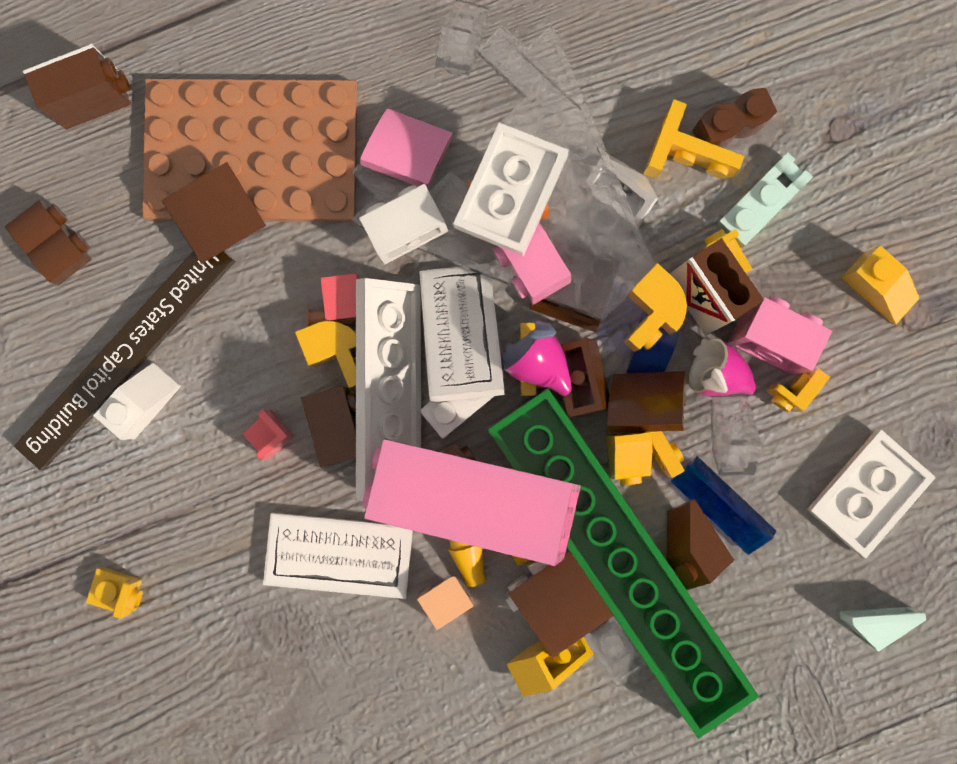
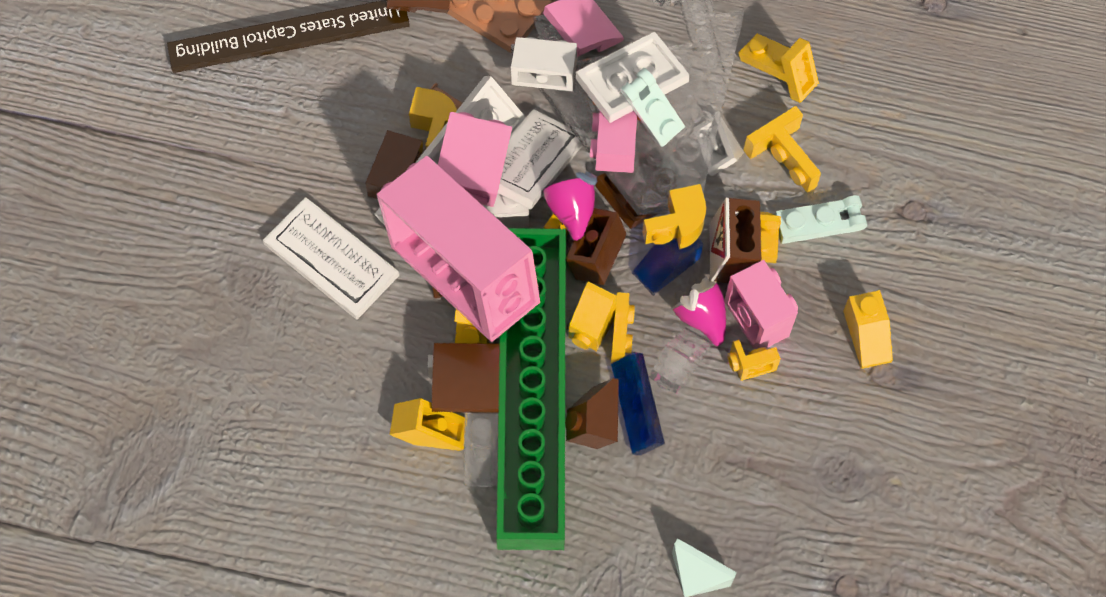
camera: 30 degrees right, 20 degrees down
(115, 592) = (156, 179): yellow bracket -> none
(137, 402) = (272, 67): white slope -> none
(268, 434) = (345, 146): coral panel -> none
(339, 296) = (462, 84): coral panel -> none
(413, 383) = (475, 154): none -> bright pink panel
(445, 602) = (383, 334): light nougat panel -> none
(469, 562) = (423, 315): yellow cone -> none
(556, 211) = (652, 107): none -> light aqua plate
(624, 57) = (788, 64): none -> yellow bracket
(647, 402) = (632, 287): reddish brown slope -> none
(736, 119) = (838, 151): reddish brown brick -> none
(871, 493) = (757, 470): white plate -> none

